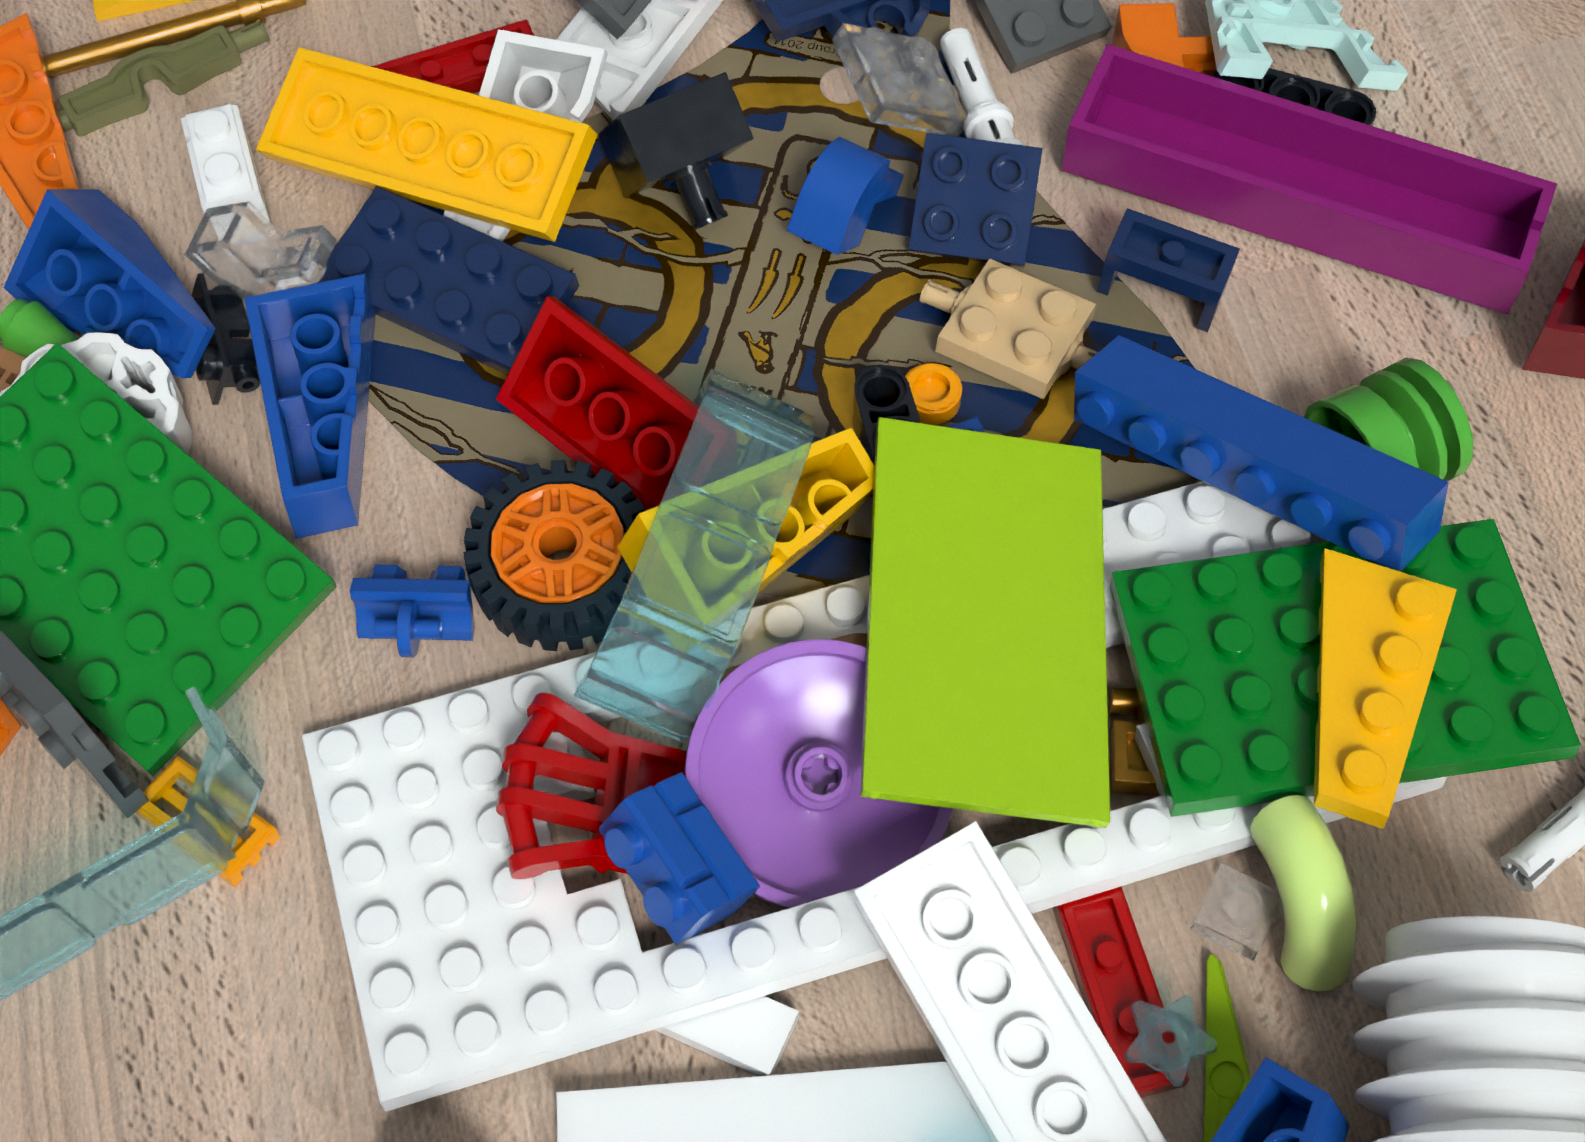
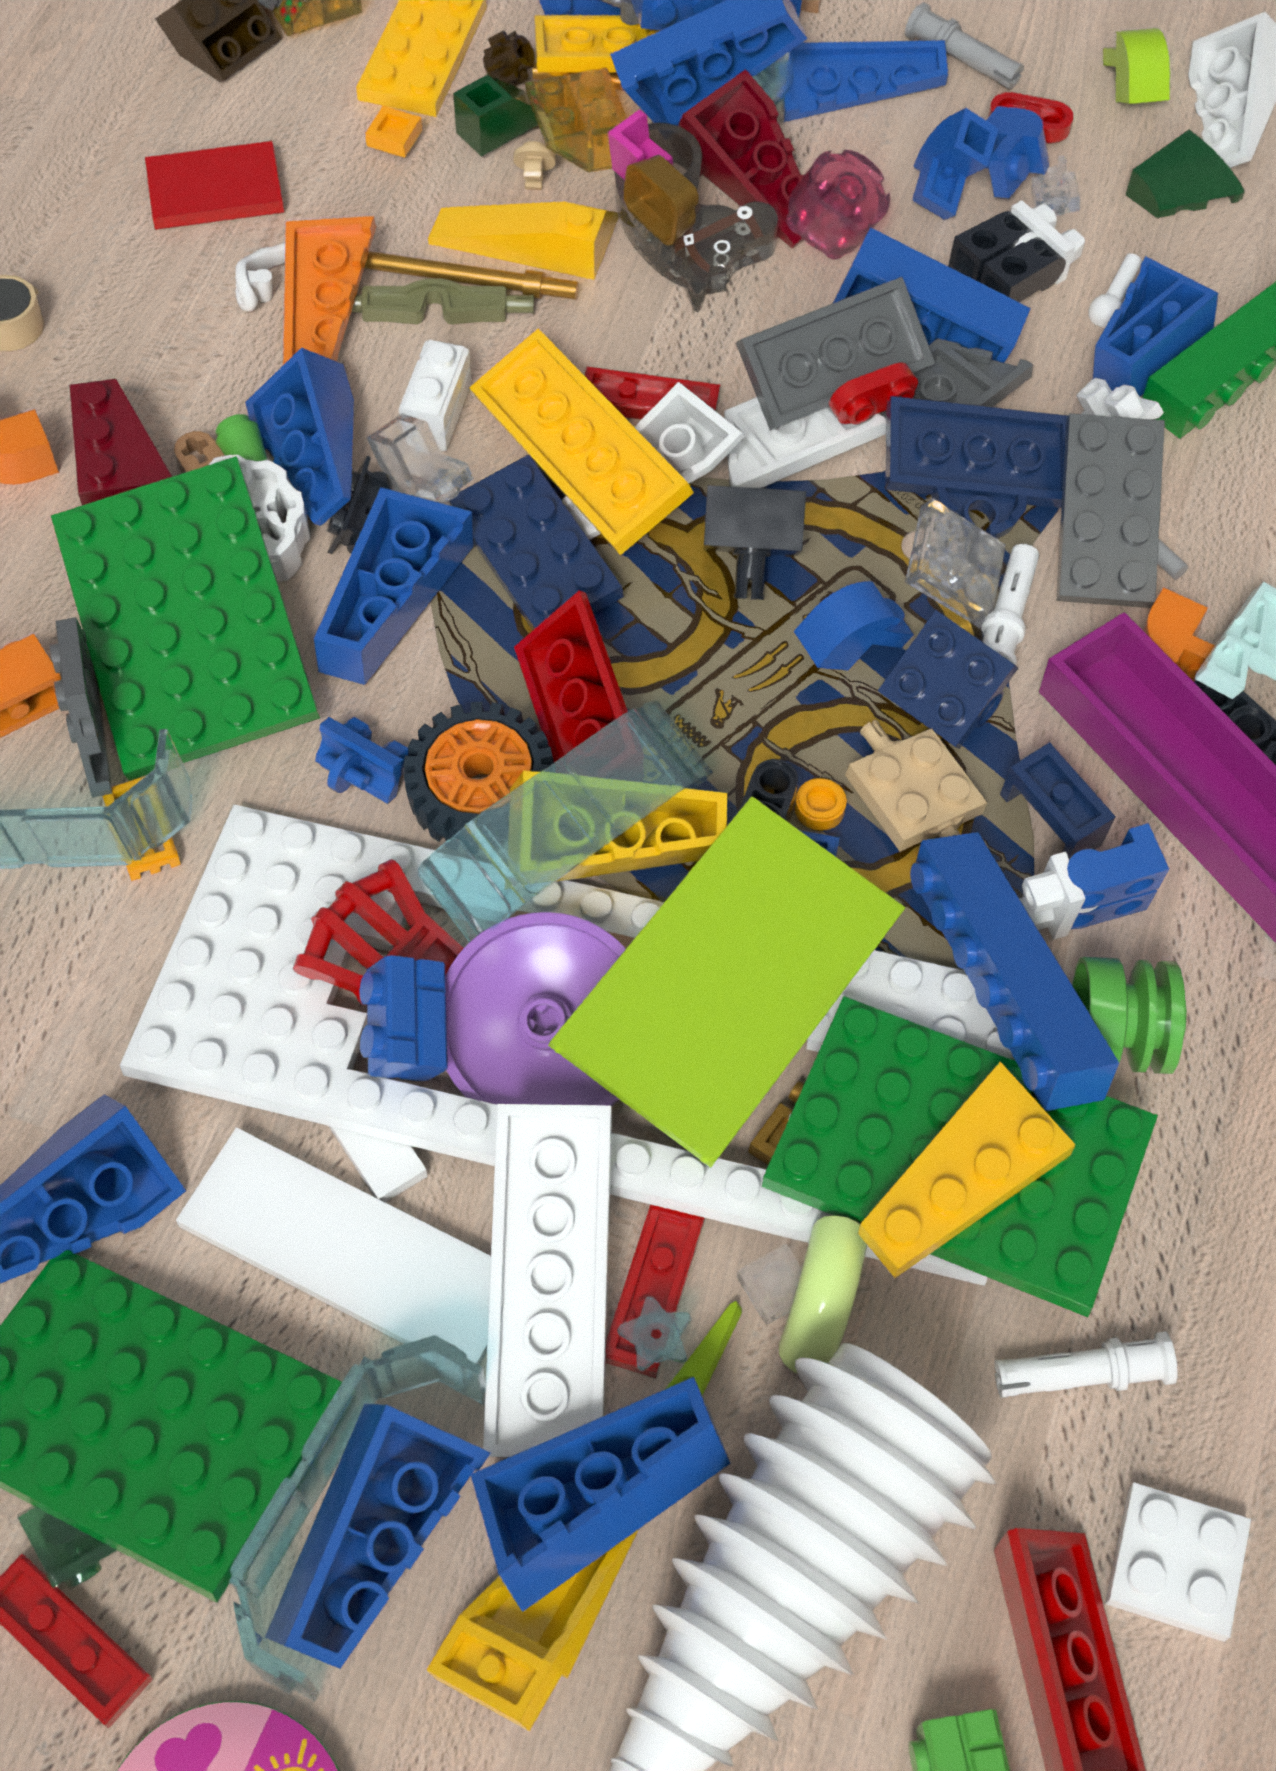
camera: 30 degrees right, 0 degrees up
(1271, 318) = (1096, 884): none -> blue hips

